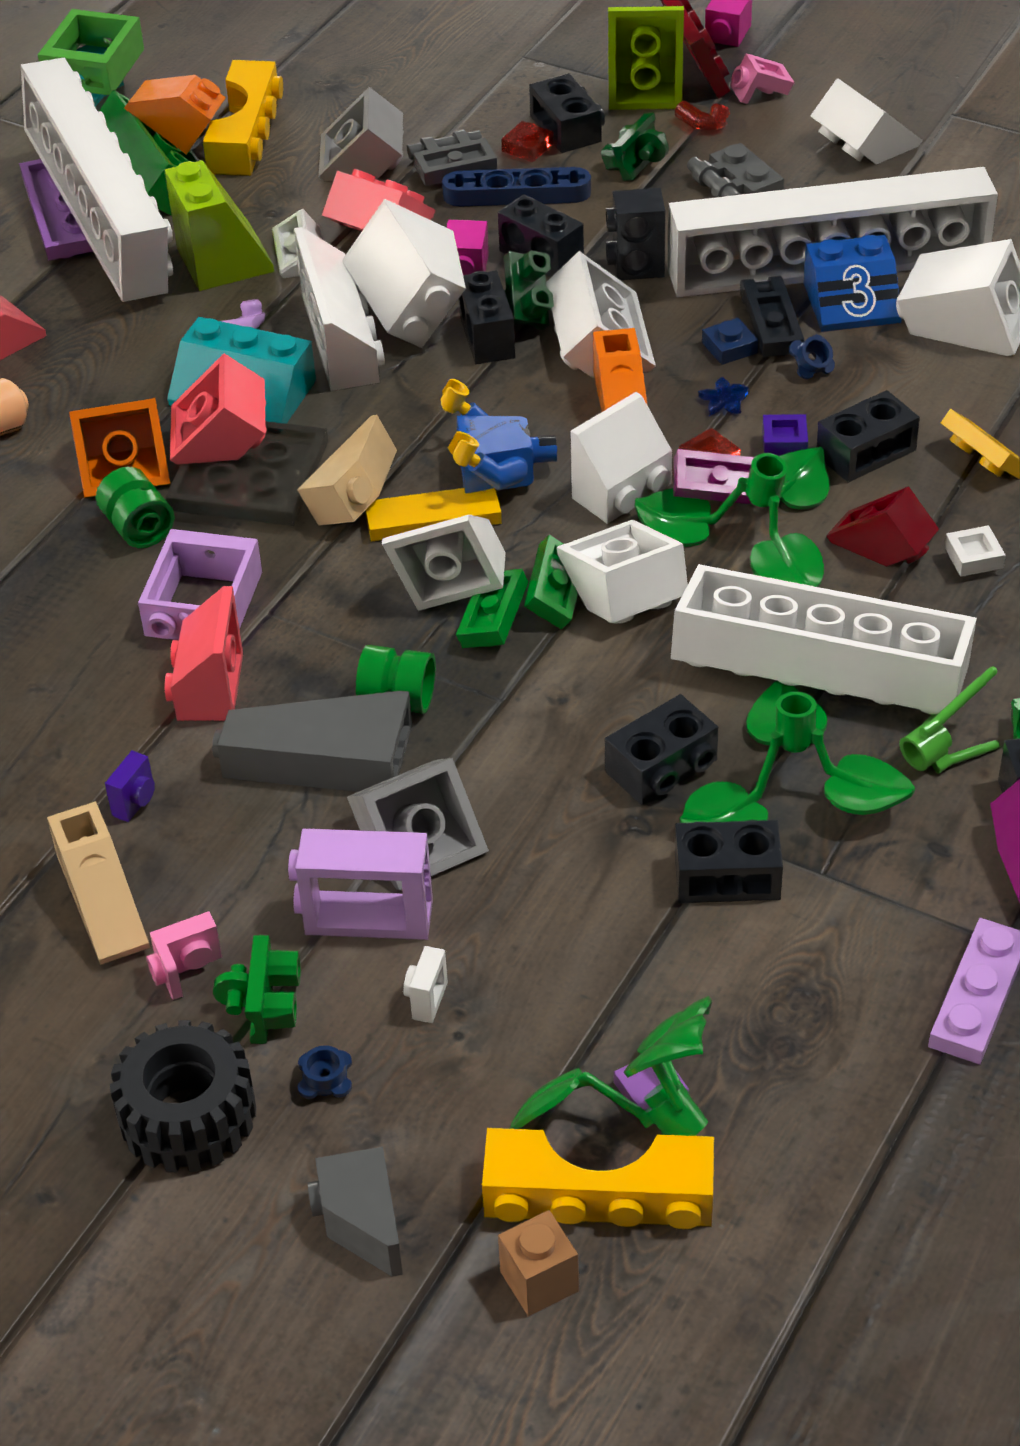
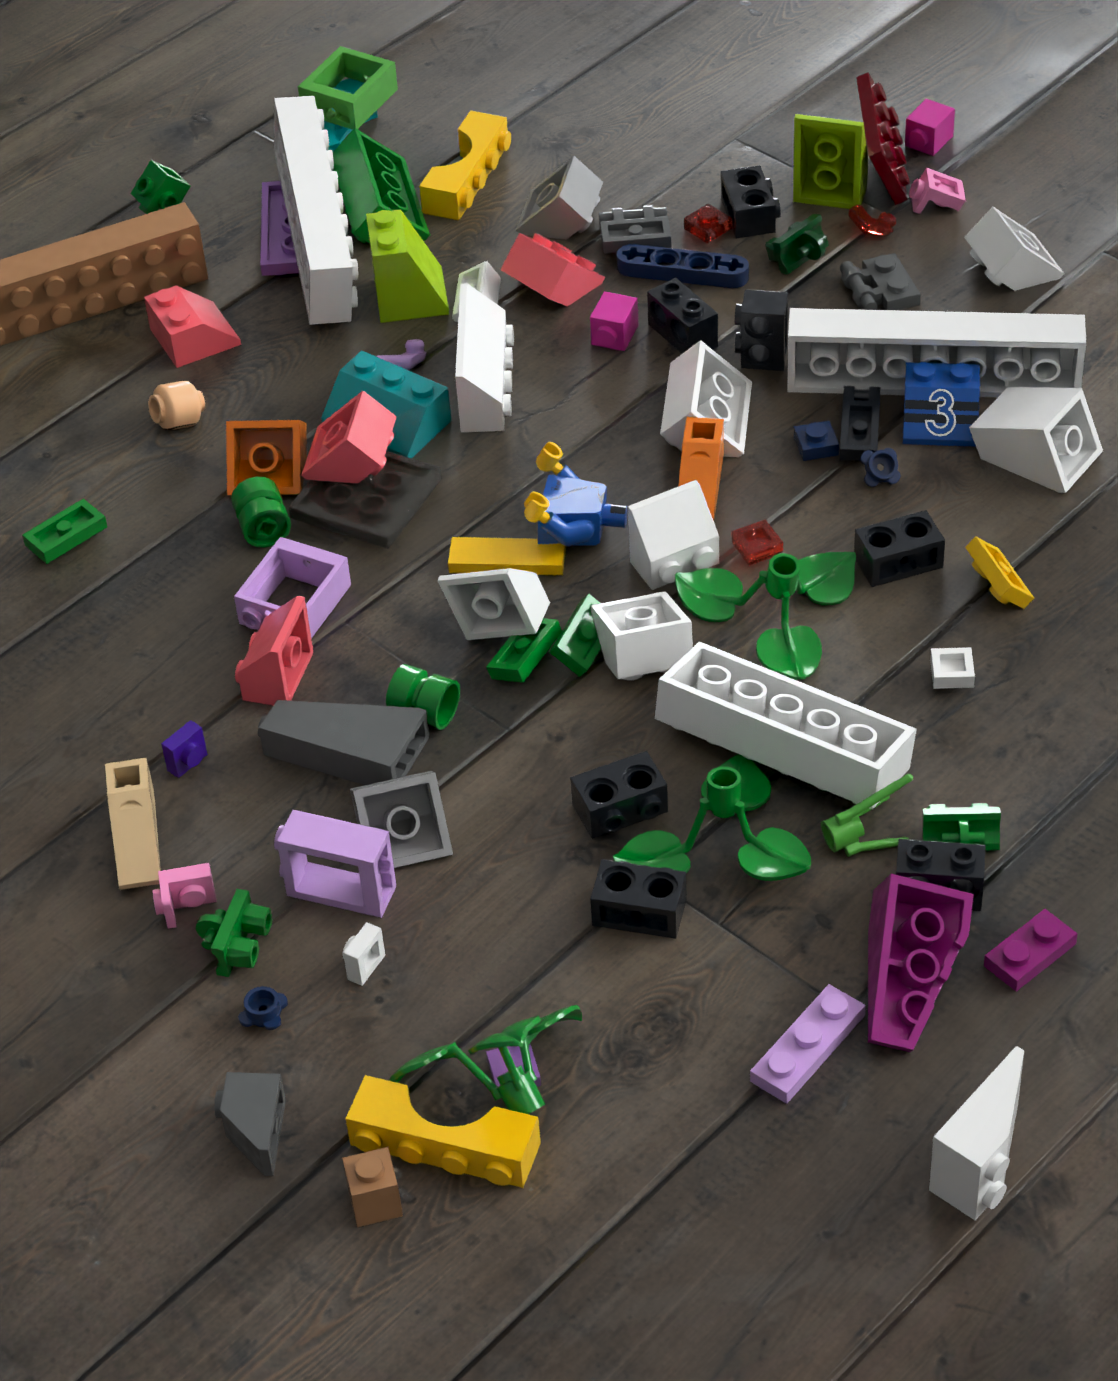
camera: 15 degrees right, 0 degrees up
(176, 107) = (405, 151): orange slope -> none
(188, 1130) = (150, 1031): black tyre -> none
(350, 476) = (447, 512): tan slope -> none
(406, 271) = (548, 335): white slope -> none
(487, 318) = (609, 386): black brick -> none
(527, 287) = (650, 367): dark green hips -> none
(709, 475) = (742, 561): plate -> none
(724, 396) = (793, 491): clear blue plant -> none
(784, 433) = (828, 534): dark purple plate -> none
(886, 529) = (882, 636): dark red slope -> none

